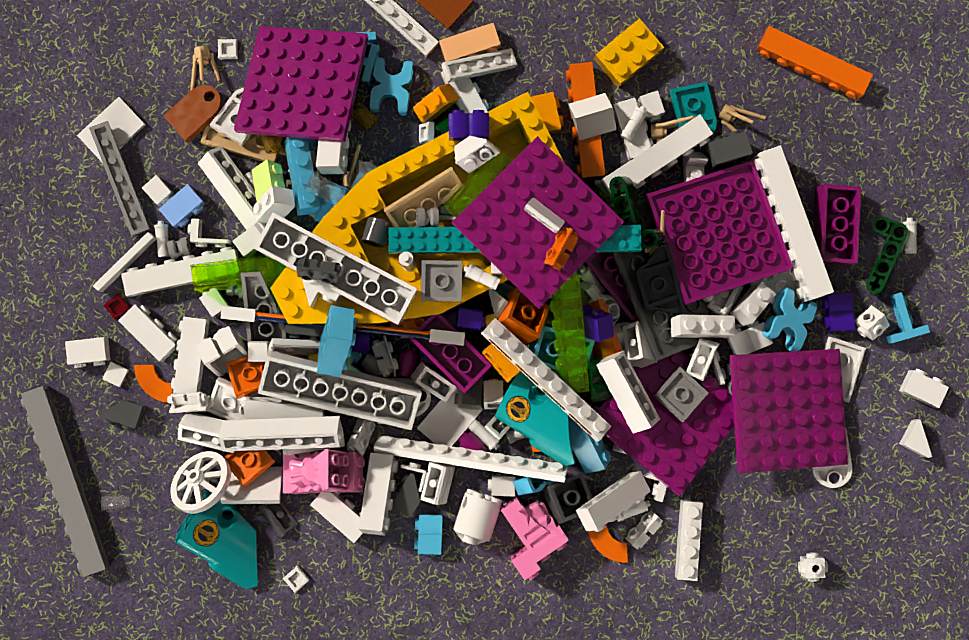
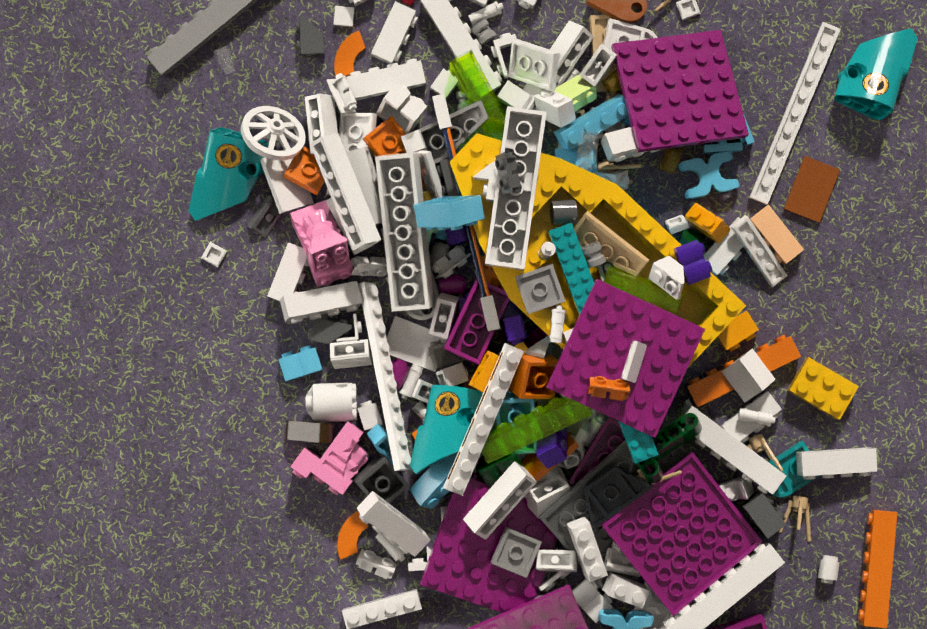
camera: 70 degrees right, 0 degrees up
(182, 207) = (523, 21): light blue brick -> none
(226, 211) = (533, 64): none -> white tile
(249, 150) = (598, 65): none -> white slope
(497, 549) = (309, 431): none -> beam
(653, 106) = (780, 429): white brick -> none
(702, 64) = (836, 462): none -> white brick
(798, 108) = (828, 569): none -> white brick

